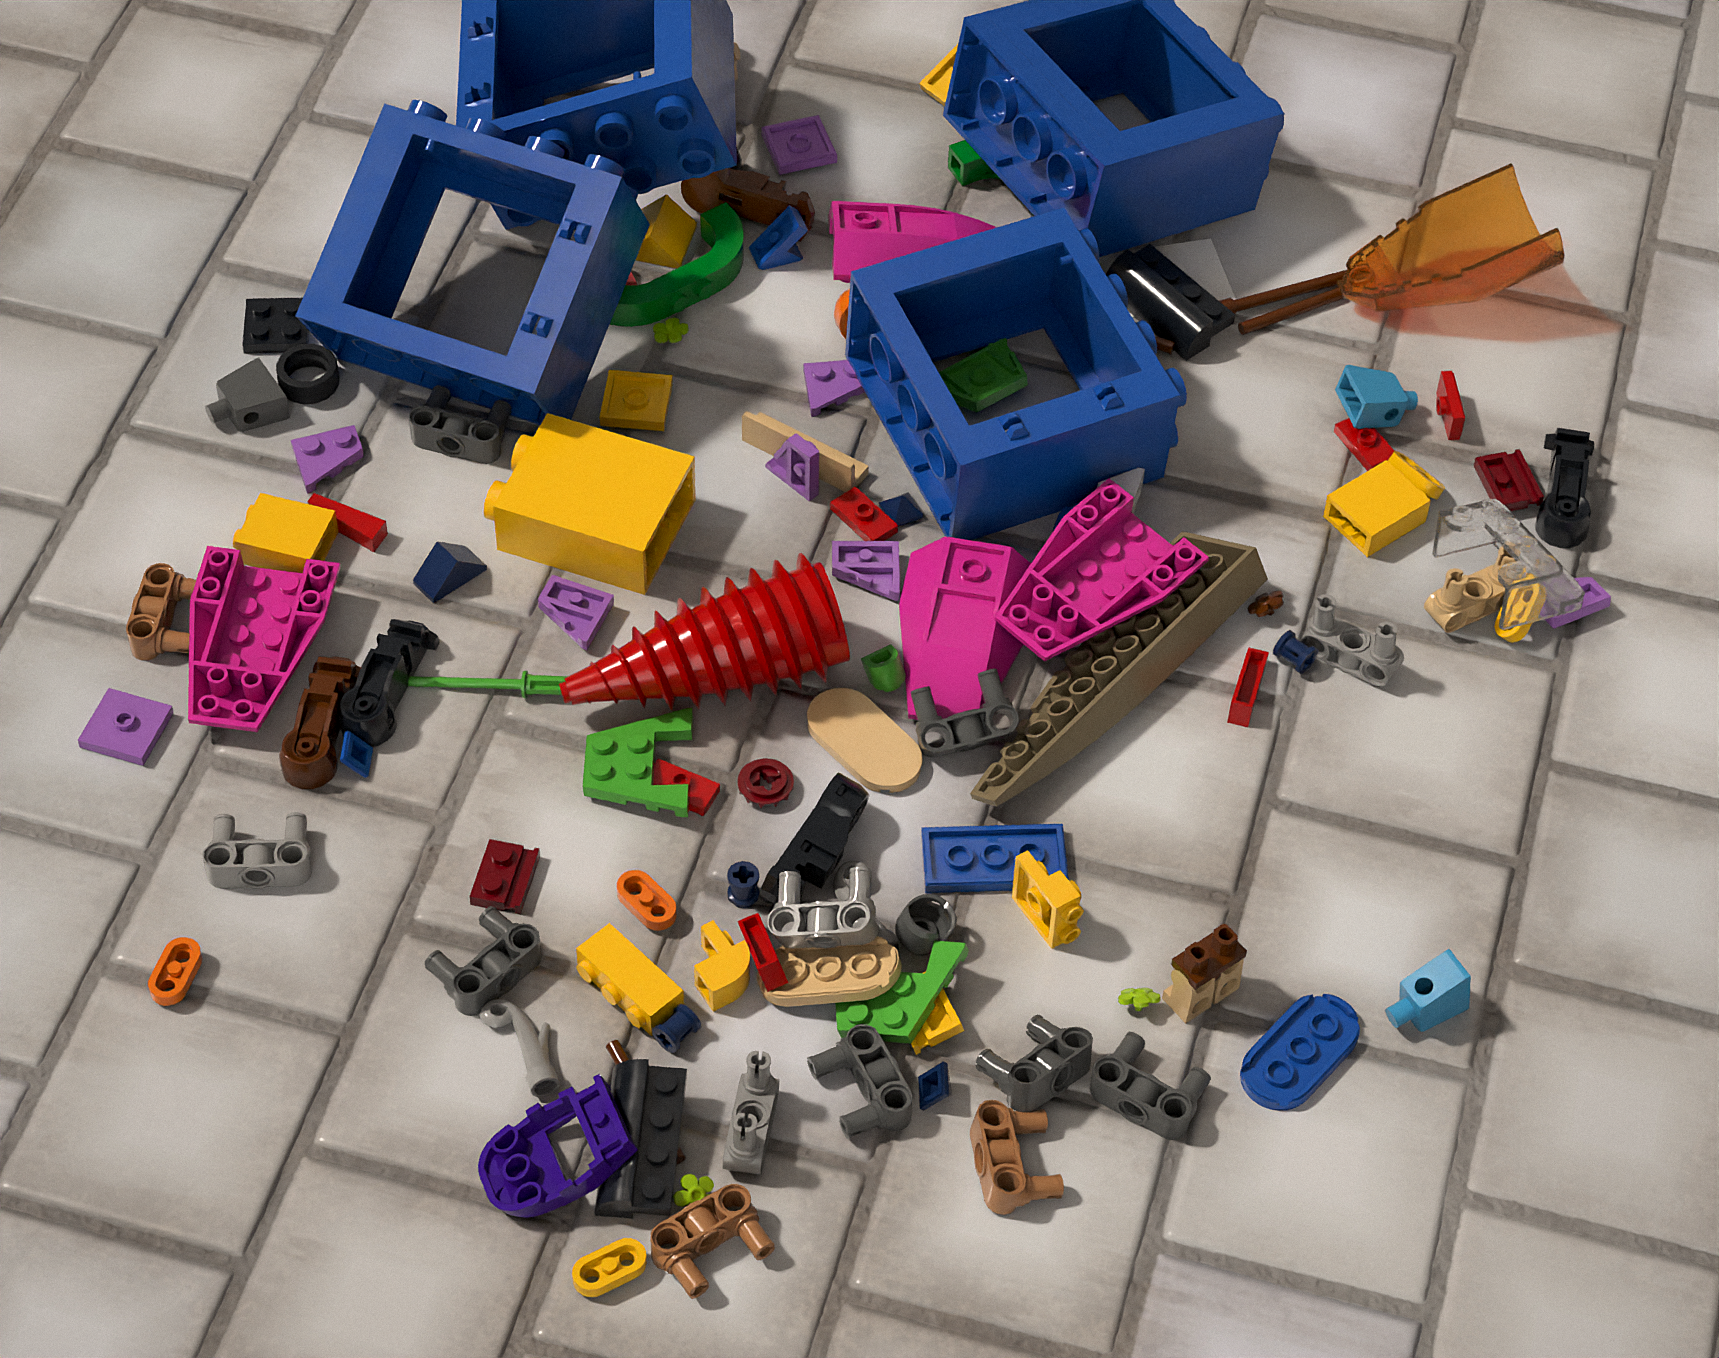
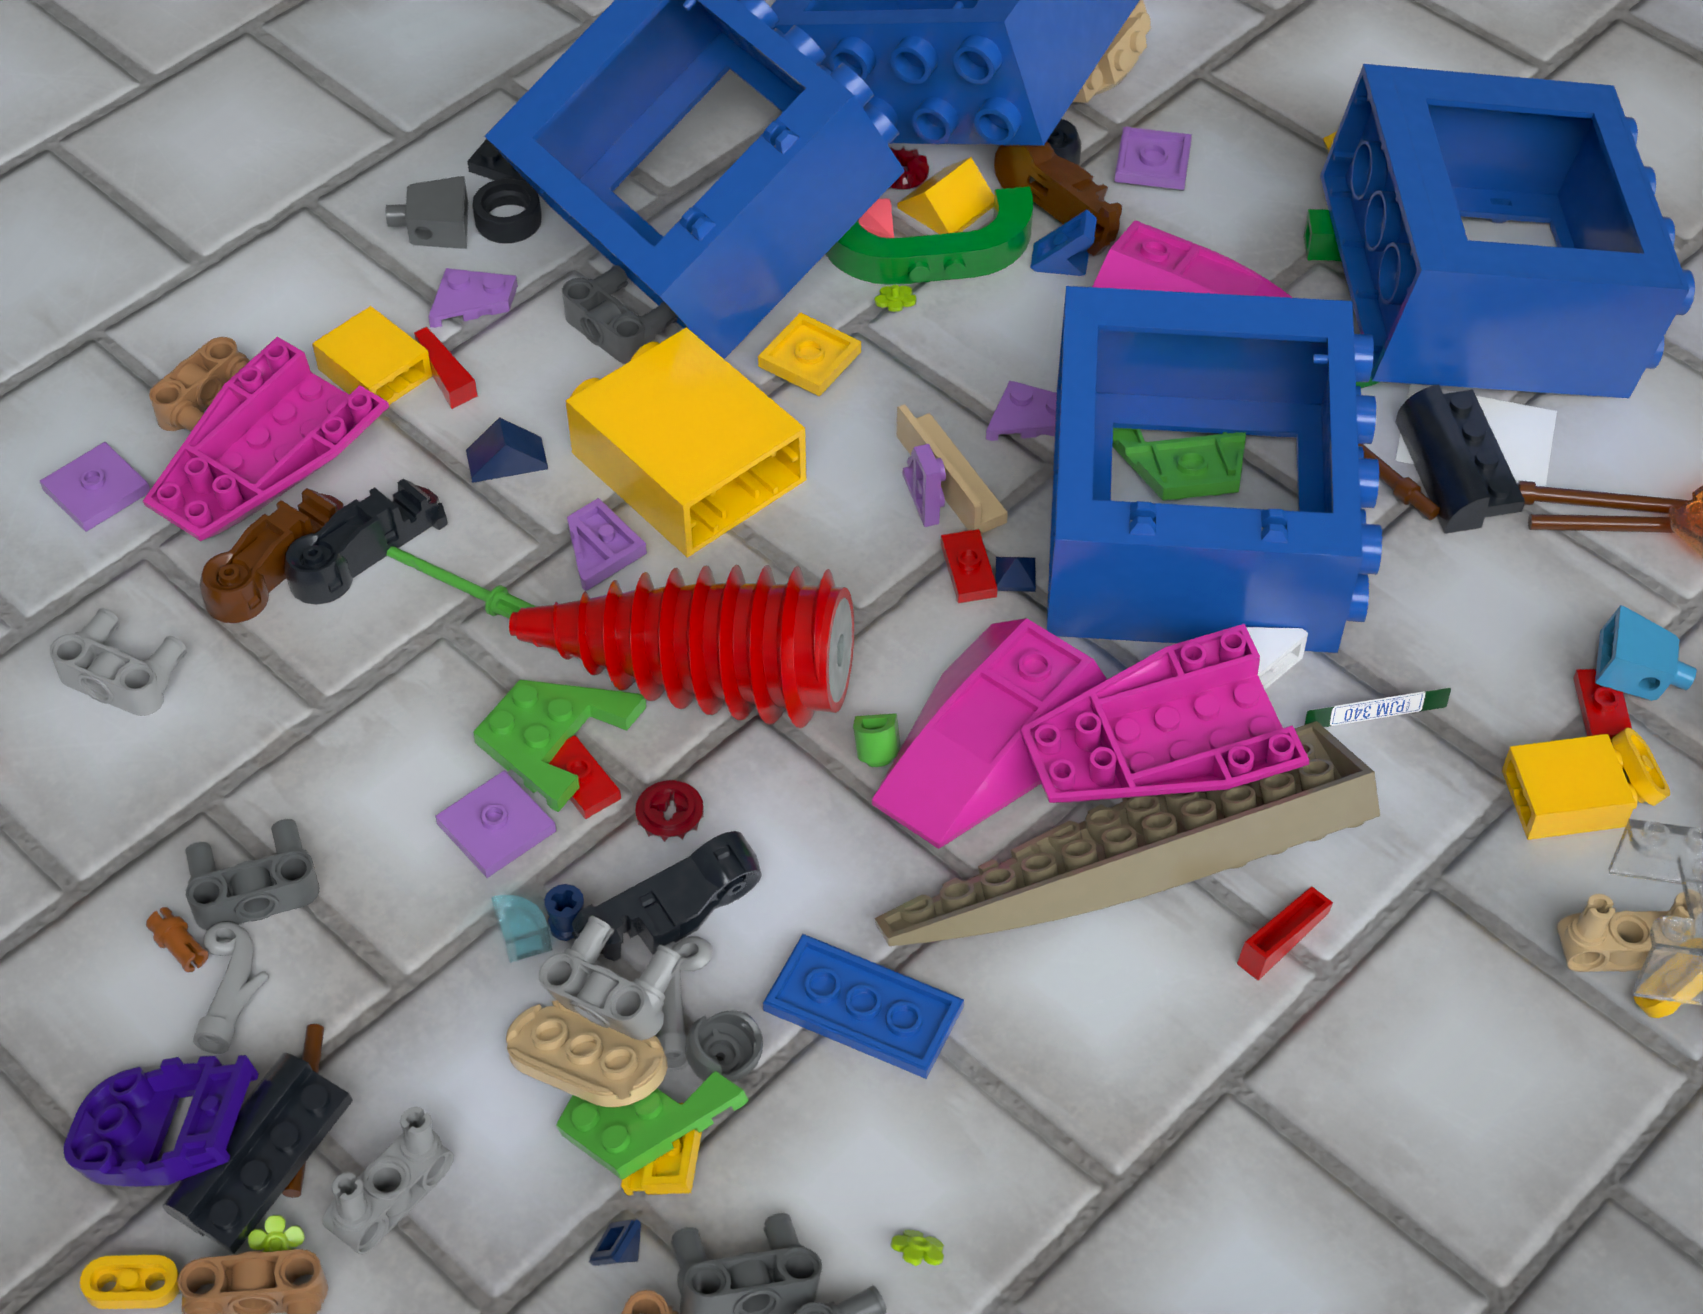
camera: 30 degrees right, 0 degrees up
(356, 754) = (281, 603): blue slope -> none
(457, 1026) = (173, 934): none -> dark orange pin
(504, 876) = (337, 794): dark red plate -> none
(628, 978) = (374, 965): yellow brick -> none
(641, 844) = (495, 823): none -> medium lavender plate
(649, 902) = (456, 887): orange plate -> none
(676, 1028) = (387, 1041): dark blue bush -> none
(717, 904) = (521, 927): none -> clear light blue brick
(726, 971) = (481, 1004): yellow brick -> none
(762, 952) = (526, 1004): red piece -> none
(864, 740) = (807, 809): tan tile -> none
(868, 565) = (937, 619): medium lavender wing -> none
(876, 1077) = (557, 1207): dark grey piece -> none
(968, 728) = (922, 843): dark grey piece -> none
(1047, 900) = (880, 1084): yellow plate -> none
(1204, 971) = (1002, 1250): hips -> none
(1219, 504) = (1379, 708): none -> sticker
(1266, 603) = (1365, 844): reddish brown plant -> none
(1295, 651) = (1364, 915): dark blue bush -> none
(1351, 647) = (1419, 919): light grey piece -> none

